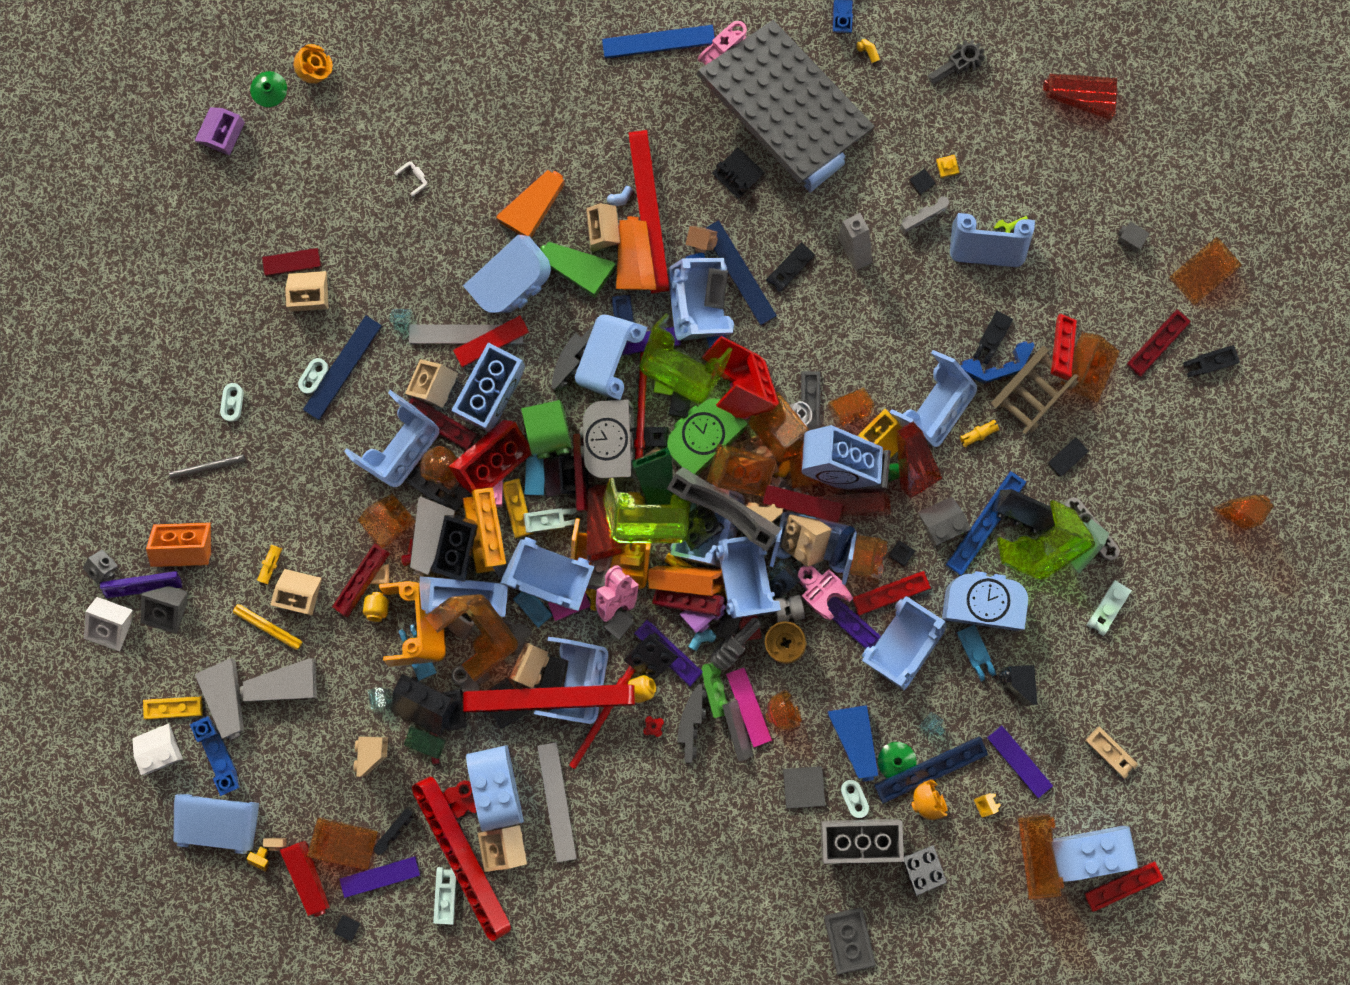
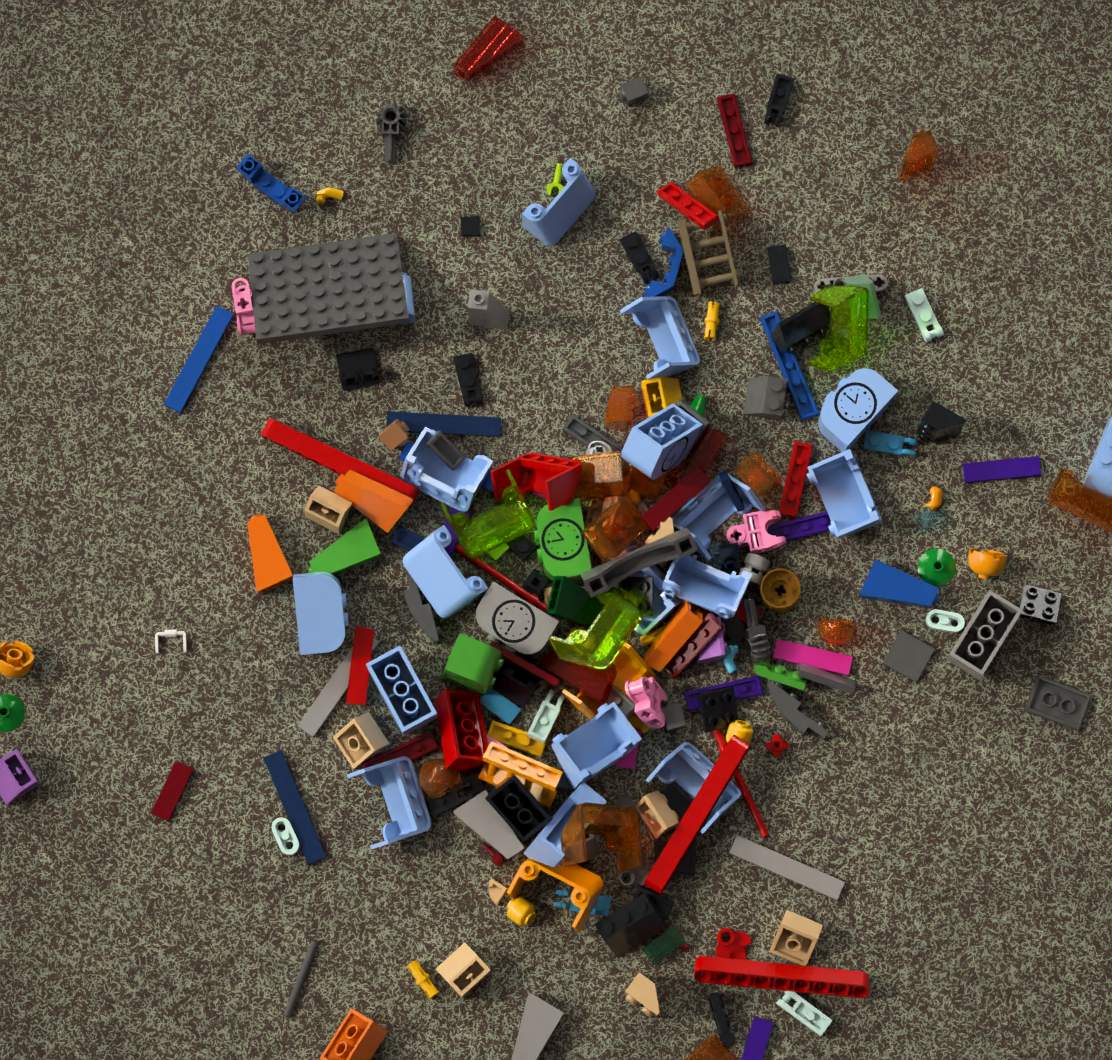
camera: 60 degrees left, 5 degrees down
(229, 402) = (259, 921): light aqua plate -> none
(267, 627) = (475, 1016): yellow axle -> none
(307, 291) = (208, 792): tan slope -> none
(360, 580) = (489, 910): dark red tile -> none
(377, 697) = (599, 960): clear light blue tile -> none
(386, 520) = (453, 854): clear orange slope -> none
(400, 316) = (285, 727): clear light blue tile -> none
(494, 788) = (742, 908): light blue brick -> none
(533, 608) = (610, 780): dark azure tile -> none
(620, 199) = (312, 480): light blue arm -> none
(632, 557) = (625, 668): yellow tile -> none
(805, 539) = (706, 516): tan slope -> none
(901, 553) = (768, 449): black tile -> none
(915, 461) = (702, 385): clear red slope -> none
(924, 215) = (499, 241): light grey plate -> none
(931, 769) = (961, 544): dark blue tile -> none
(947, 166) = (471, 197): yellow tile -> none
(956, 722) = (936, 498): none -> light orange arm
(986, 805) = (1019, 519): yellow tile -> none
(1111, 752) = (1041, 392): tan plate -> none
(1205, 270) = (701, 54): clear orange slope -> none

